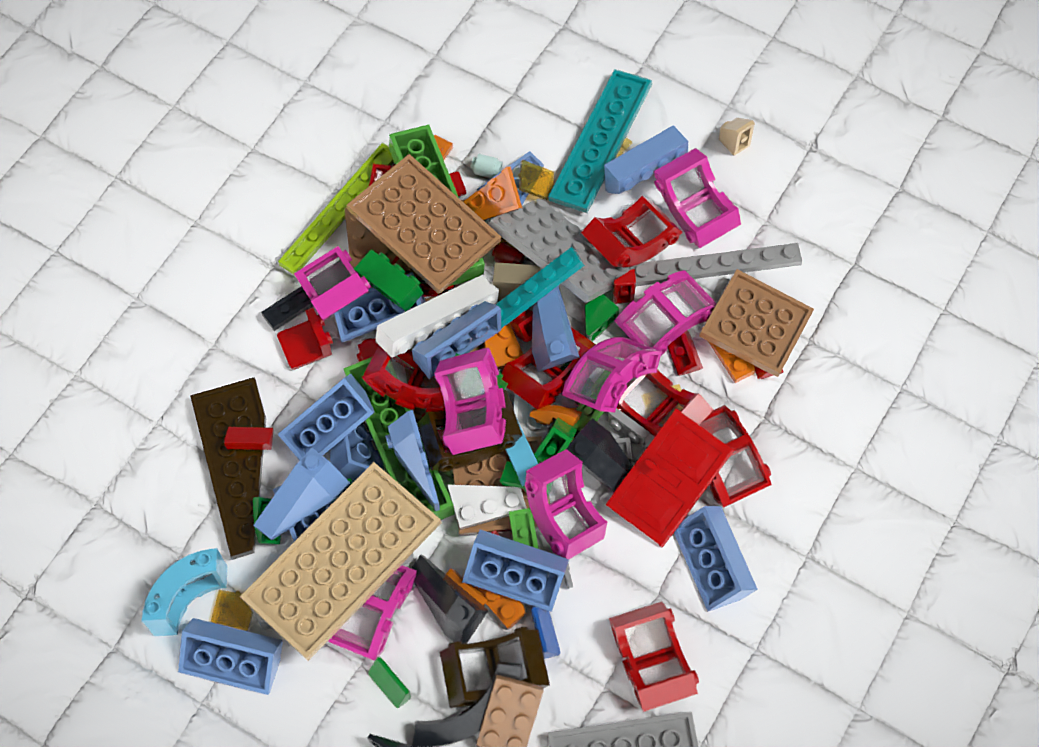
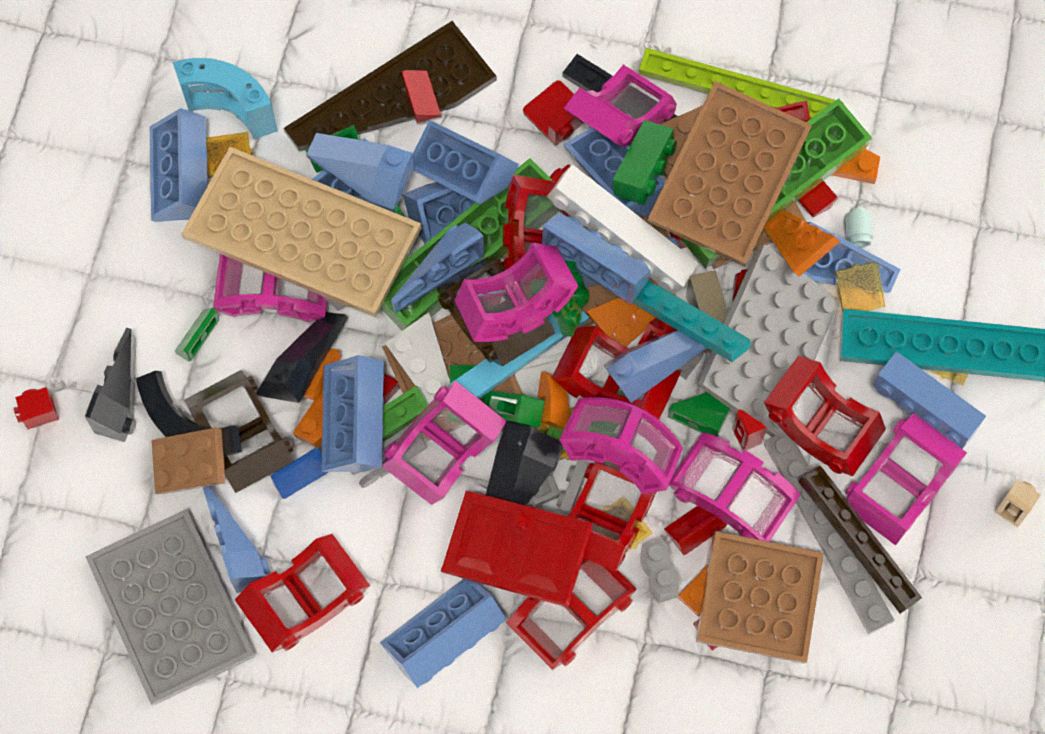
camera: 70 degrees right, 5 degrees up
(603, 699) = (238, 552): none -> medium blue wedge
(718, 385) = (656, 564): none -> light grey brick
(730, 243) = (860, 539): none -> dark brown tile

